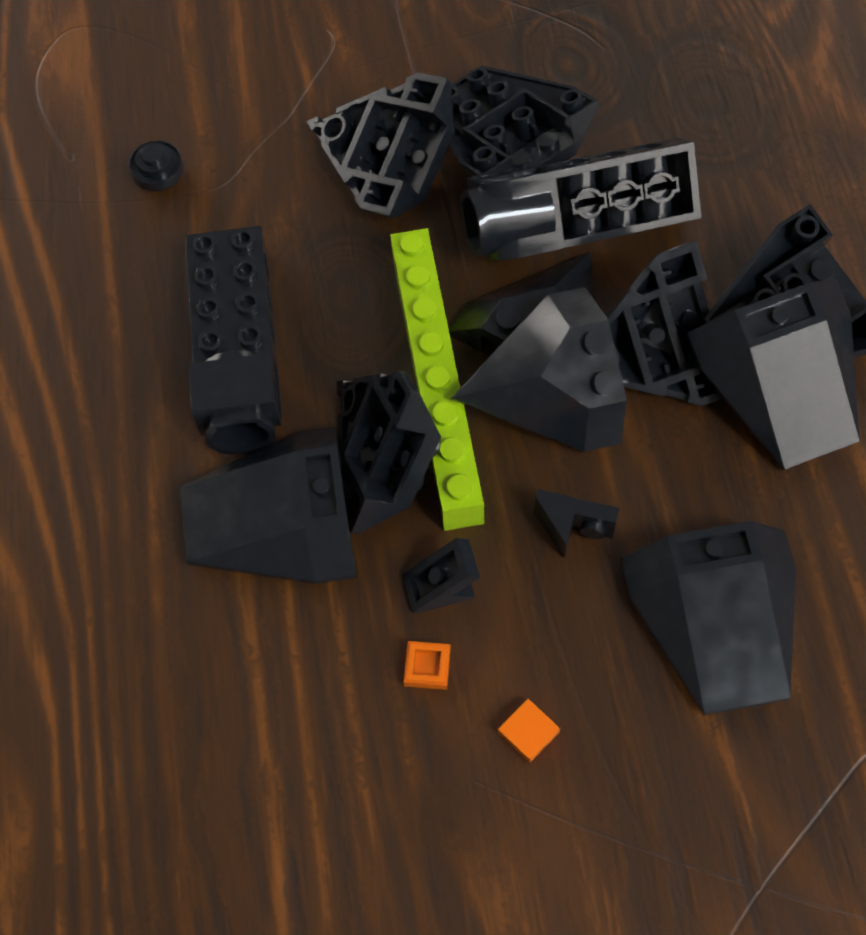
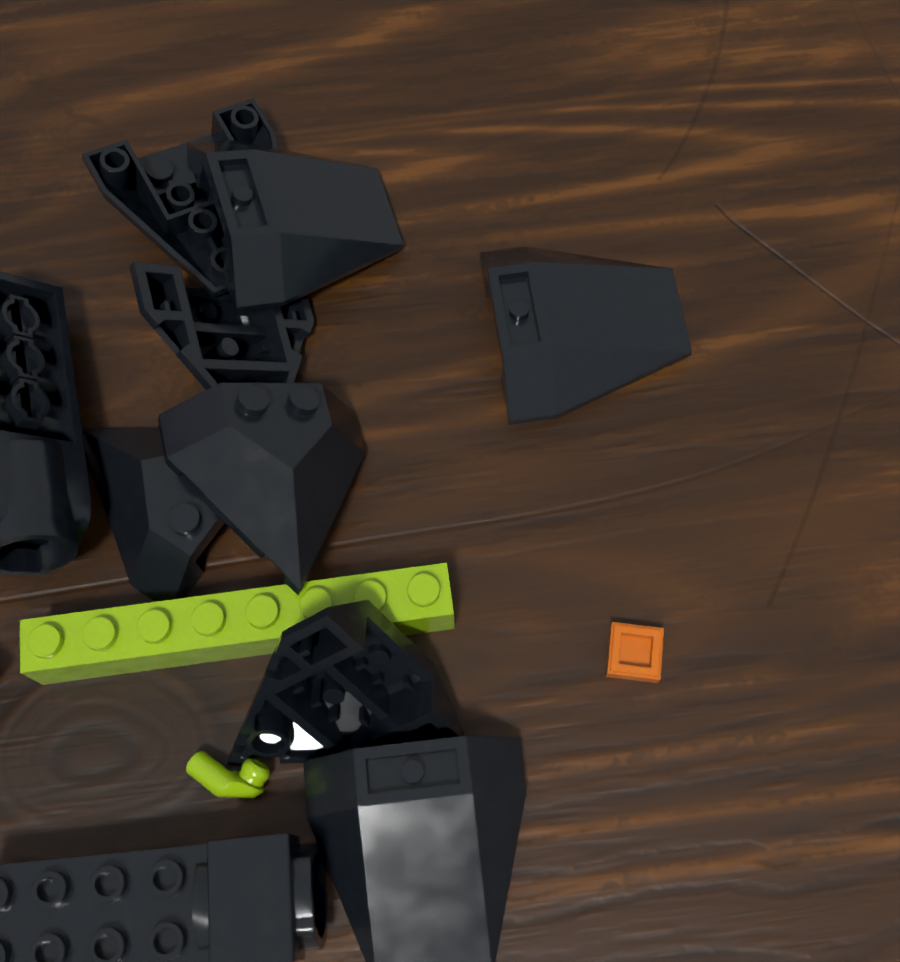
camera: 90 degrees left, 5 degrees up
(321, 380) = (225, 782): none -> lime arm
(442, 577) = (530, 625): black slope -> none
(528, 730) = (713, 538): orange tile -> none
(564, 513) = (456, 477): black slope -> none

